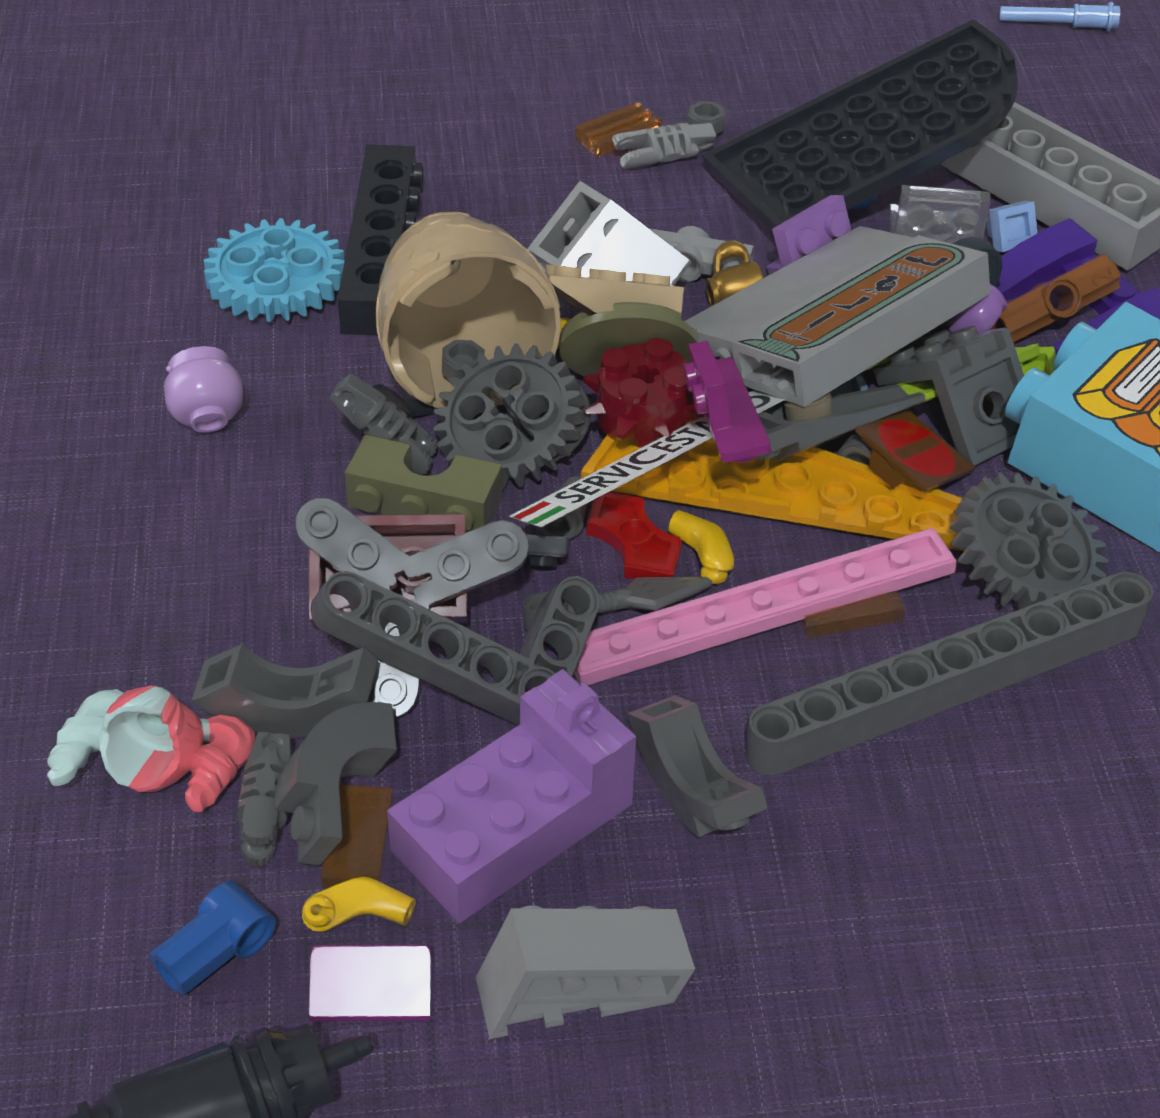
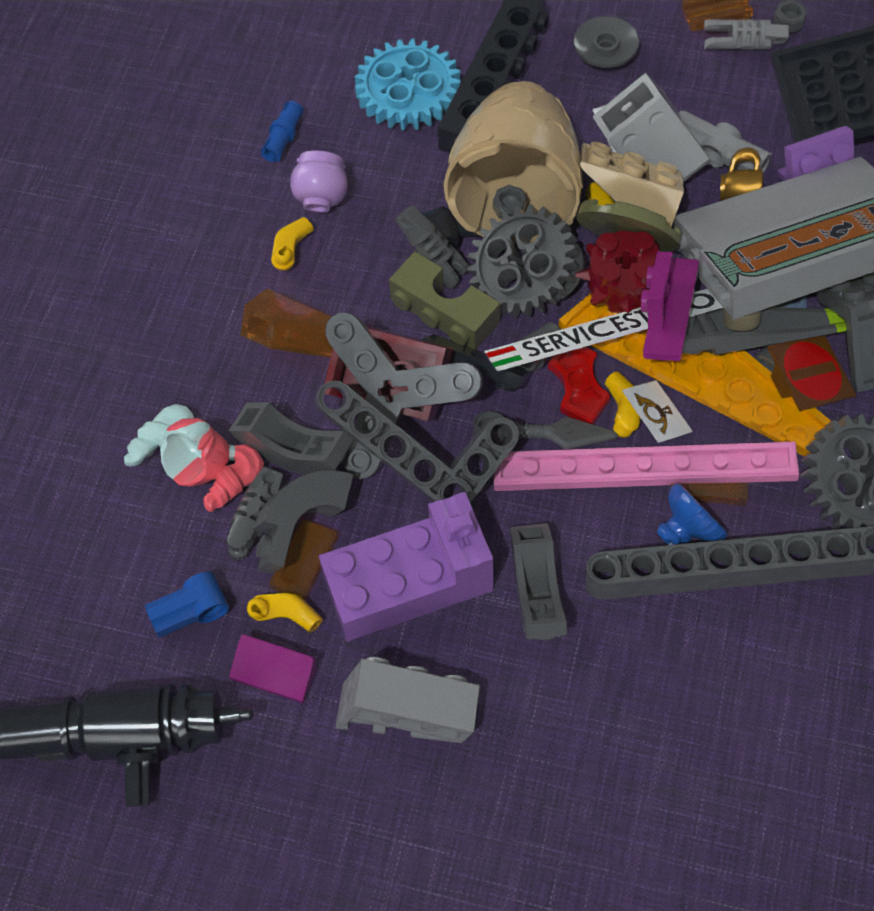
camera: 25 degrees right, 15 degrees up
(127, 352) = (282, 131): none -> blue pin
(182, 471) = (286, 241): none -> yellow arm
(232, 559) = (285, 325): none -> clear orange slope
(504, 180) = (606, 41): none -> dark grey dish
(749, 541) = (657, 411): none -> white sticker
(851, 638) = (688, 520): none -> blue hair

